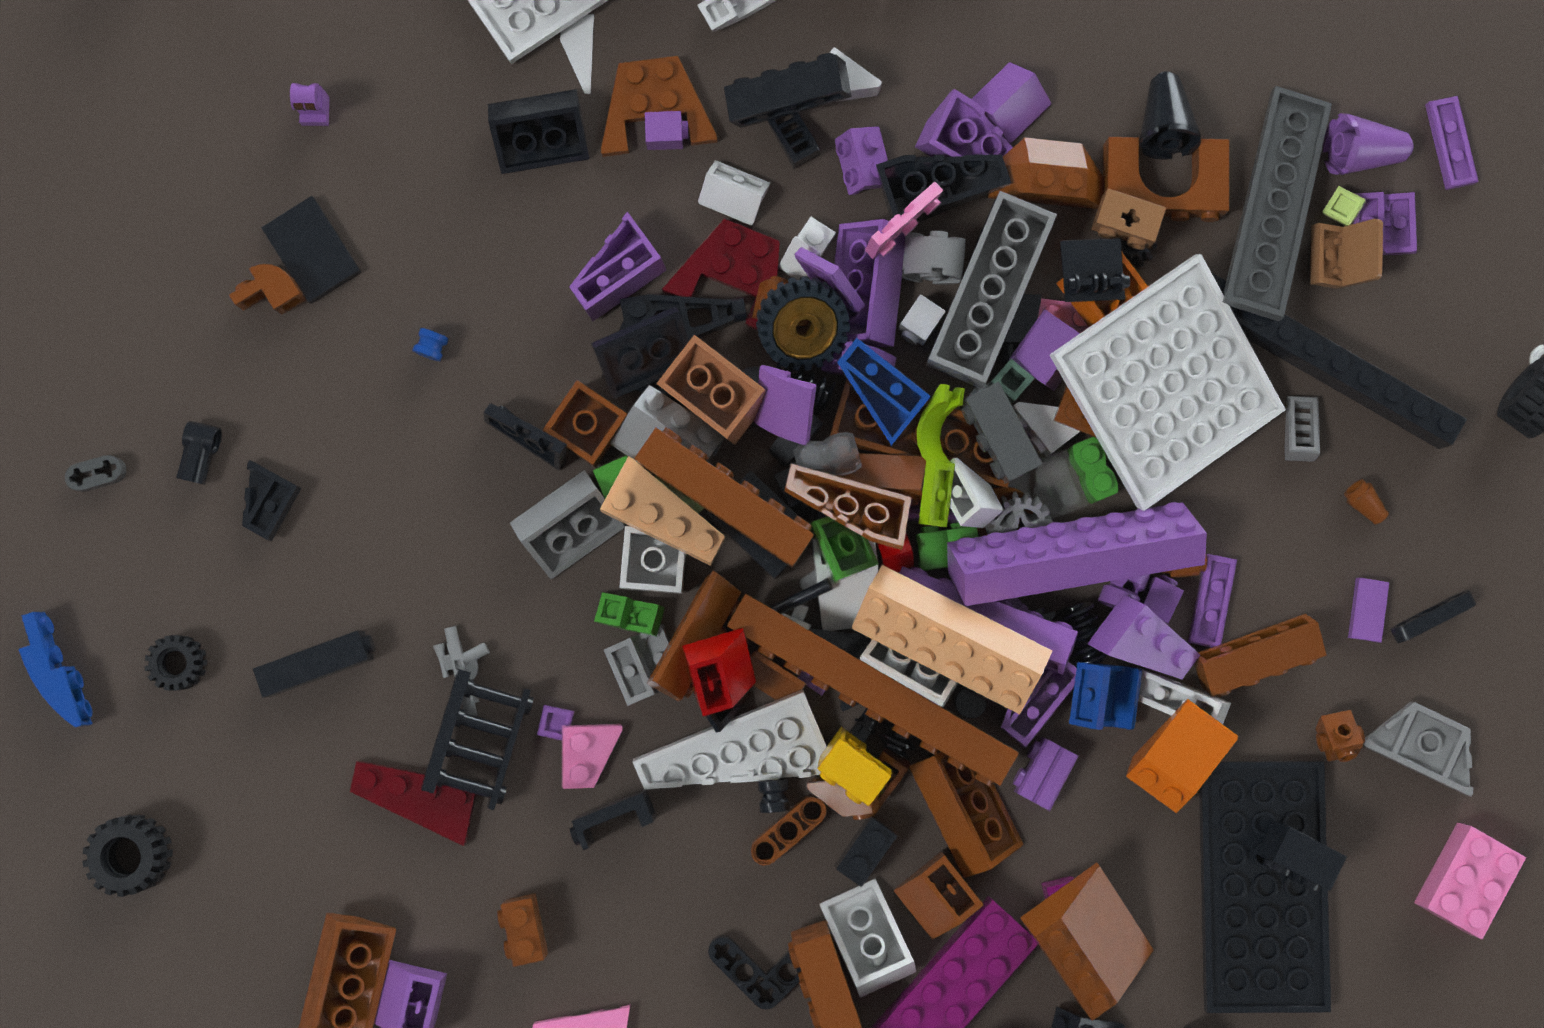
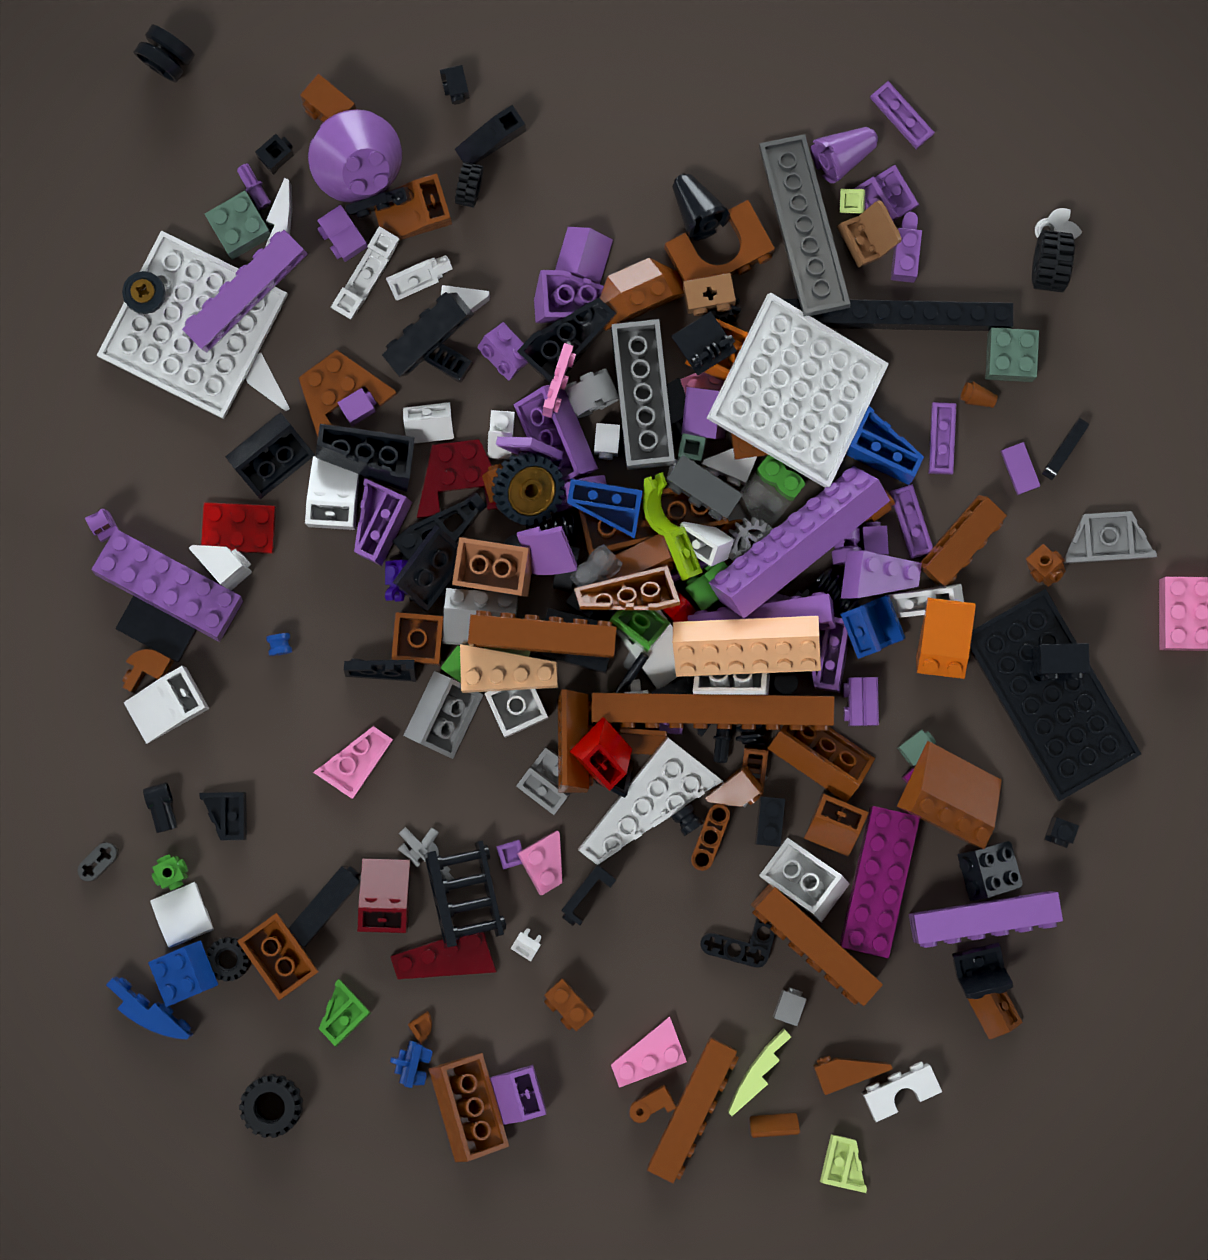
camera: 25 degrees left, 0 degrees up
(113, 651) = (183, 973): none -> blue brick
(153, 584) = (181, 915): none -> white slope
(175, 529) = (178, 868): none -> bright green brick
(227, 692) = (278, 956): none -> dark orange slope
(267, 797) = (343, 1014): none -> bright green wing
(269, 341) = (166, 704): none -> white slope
(309, 892) = (407, 1064): none -> blue hips
(344, 210) = (167, 585): none -> medium lavender brick
(347, 860) = (421, 1027): none -> dark orange tile
(386, 691) = (384, 896): none -> slope
(414, 220) = (225, 565): none -> white slope
(438, 524) = (356, 762): none -> bright pink wing
(459, 192) = (239, 527): none -> red plate
(513, 835) = (525, 945): none -> white tile
(583, 211) = (331, 496): none -> white slope
(600, 331) = (392, 569): none -> dark purple plate
(629, 614) = (520, 752): bright green slope -> none
(646, 186) = (368, 453): none -> black wedge
(812, 25) = (418, 277): none -> white hinge
(853, 768) = (729, 768): yellow brick -> none
(1076, 858) = (913, 747): none -> sand green brick
(1228, 504) = (884, 449): none -> blue wedge
(1298, 527) = (942, 438): none -> medium lavender tile
(1299, 453) = (915, 387): light grey slope -> none
(1376, 297) = (907, 252): none -> medium lavender brick
(1431, 477) = (1012, 354): none -> sand green brick

